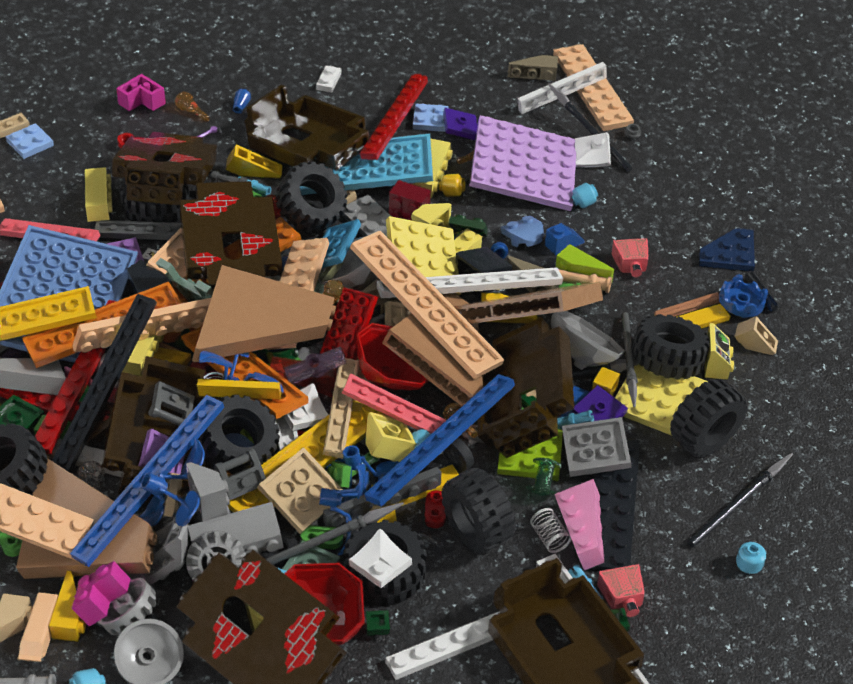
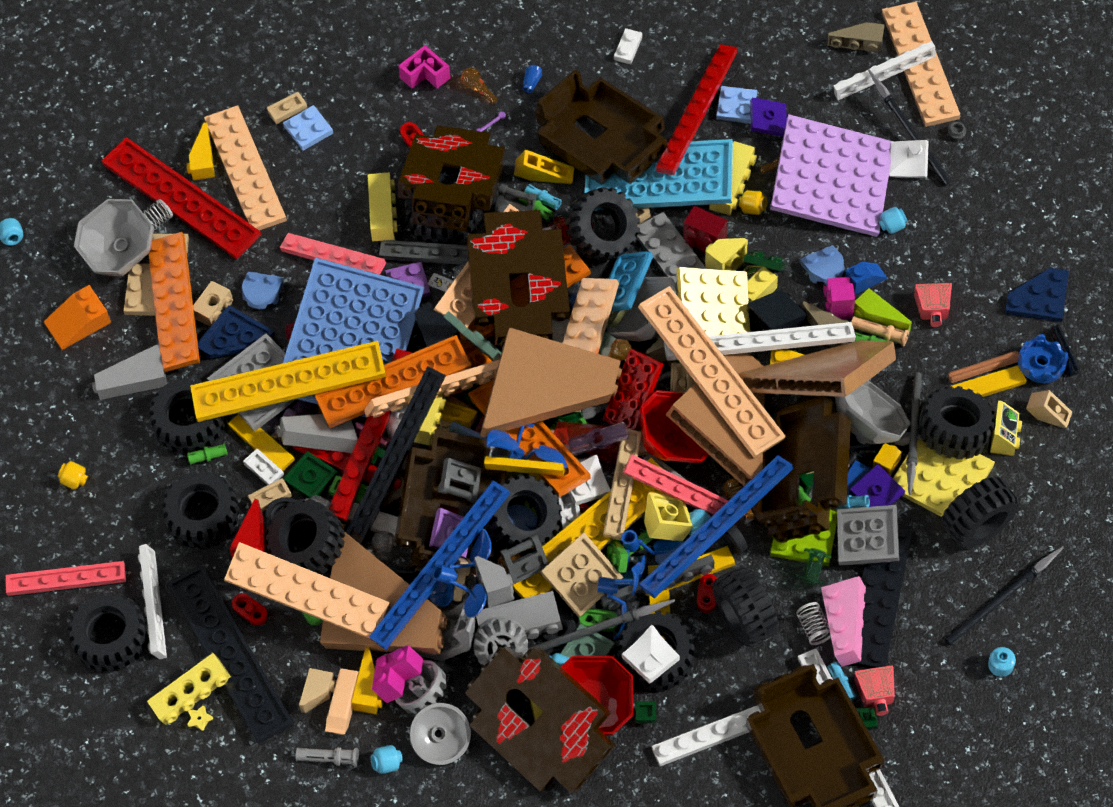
camera: 10 degrees right, 15 degrees up
(500, 249) = (796, 290): blue plate -> none
(543, 251) = (839, 297): none -> dark pink brick

